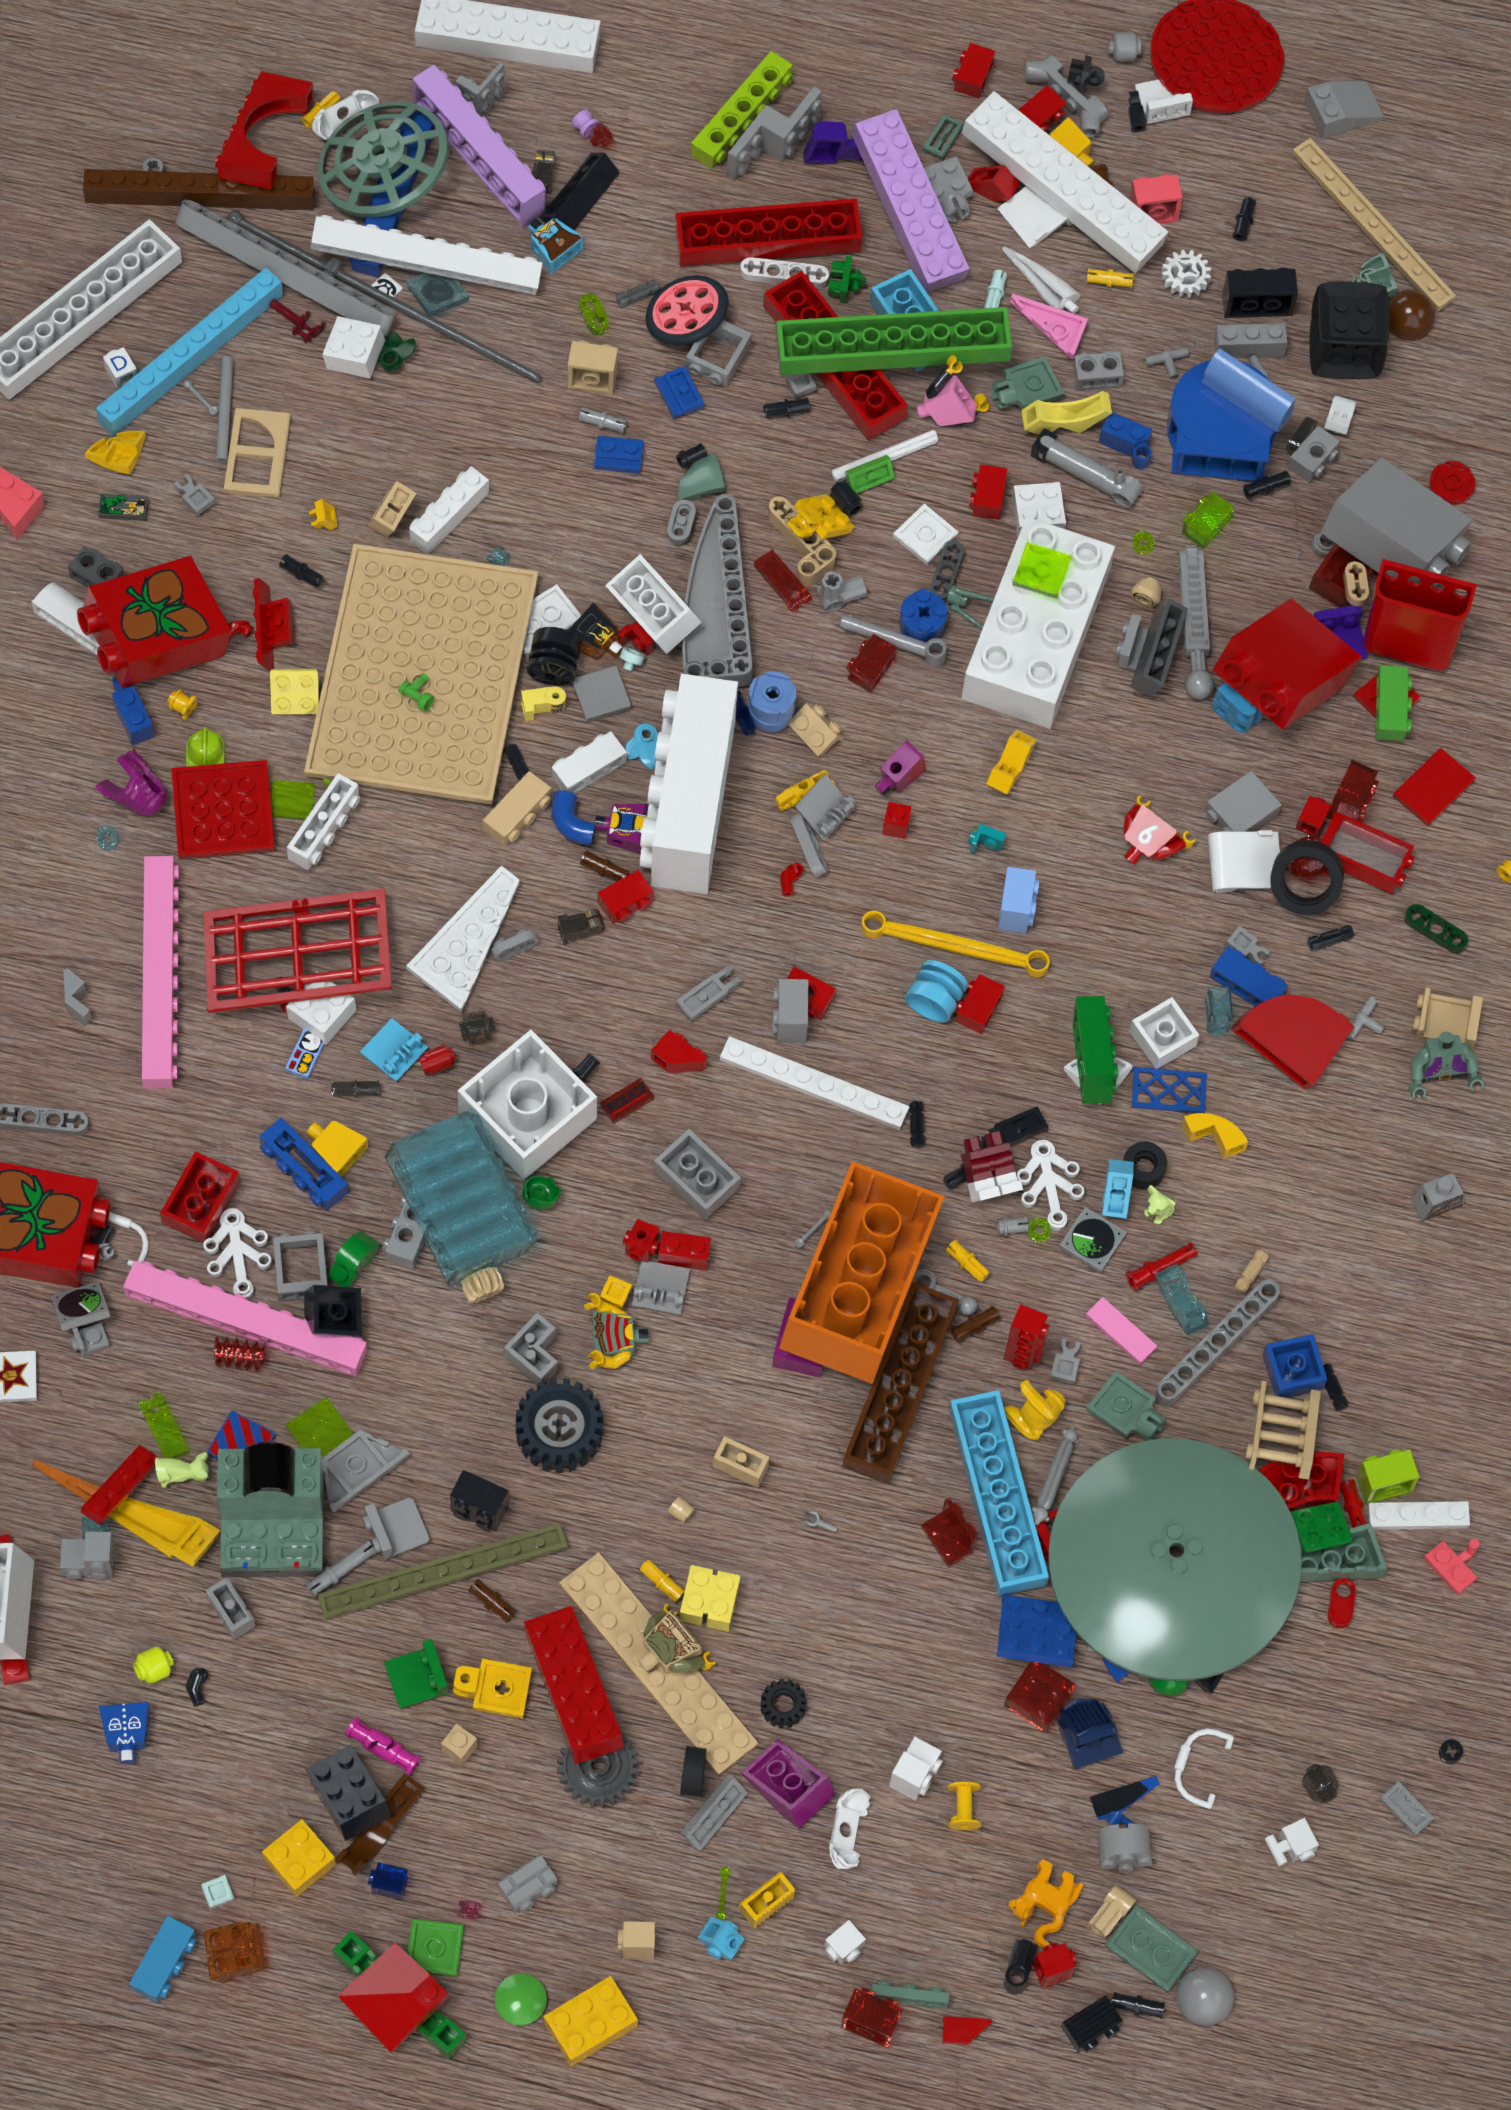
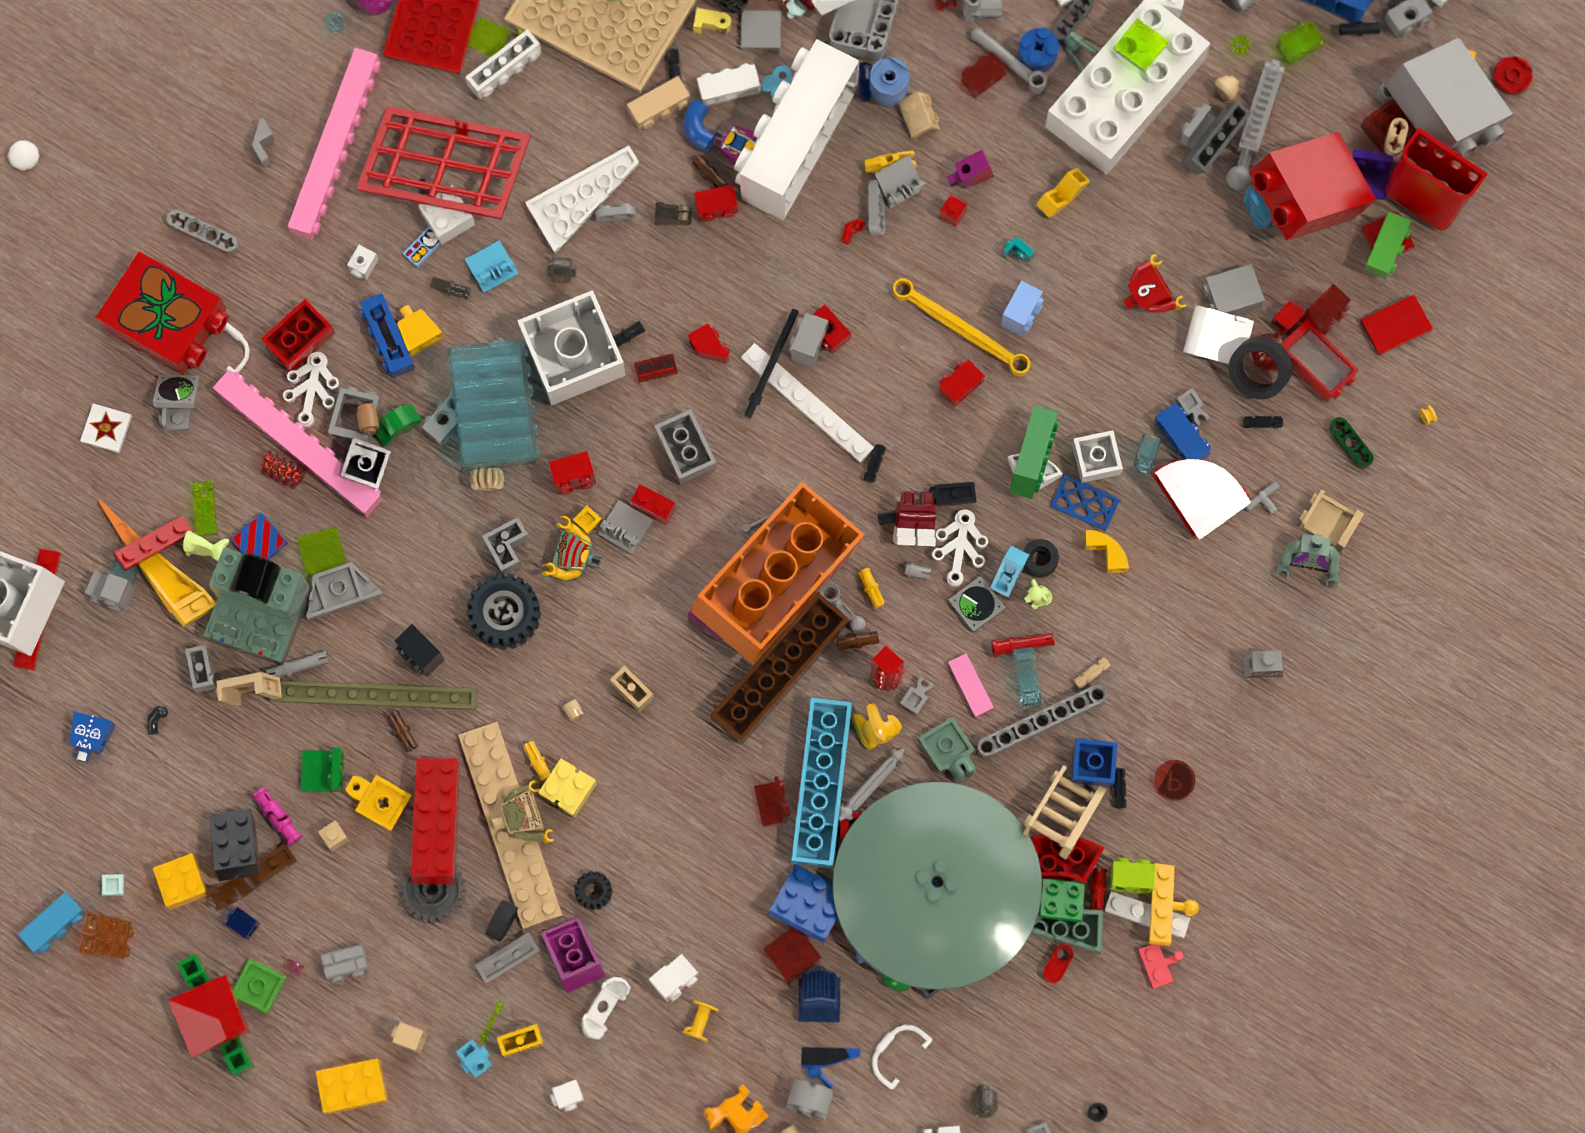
camera: 25 degrees right, 10 degrees up
(102, 1239) = (213, 347): arm -> none
(153, 1665) = (128, 692): neon yellow head -> none
(243, 1092) = (362, 263): none -> white brick
(293, 1604) = (263, 684): none -> tan panel
(320, 1260) = (367, 419): none -> medium nougat brick
(395, 1528) = (349, 648): light grey bracket -> none
(437, 1060) = (520, 286): red brick -> none
(520, 1999) = (307, 1049): bright green dish -> none
(541, 1192) = (560, 420): green hair -> none
(579, 1245) = (572, 473): none -> red brick
(642, 1241) = (622, 486): red brick -> none
(707, 994) = (751, 303): light grey hinge -> none
(755, 1093) = (755, 398): none -> black bar
(816, 1521) = (673, 755): light grey hand -> none
(936, 991) = (932, 359): medium azure wheel -> none
(1035, 1236) = (932, 586): clear neon green bush -> none
(1389, 1358) = (1174, 780): none -> clear red tile
(1434, 1498) = (1163, 904): none -> yellow plate

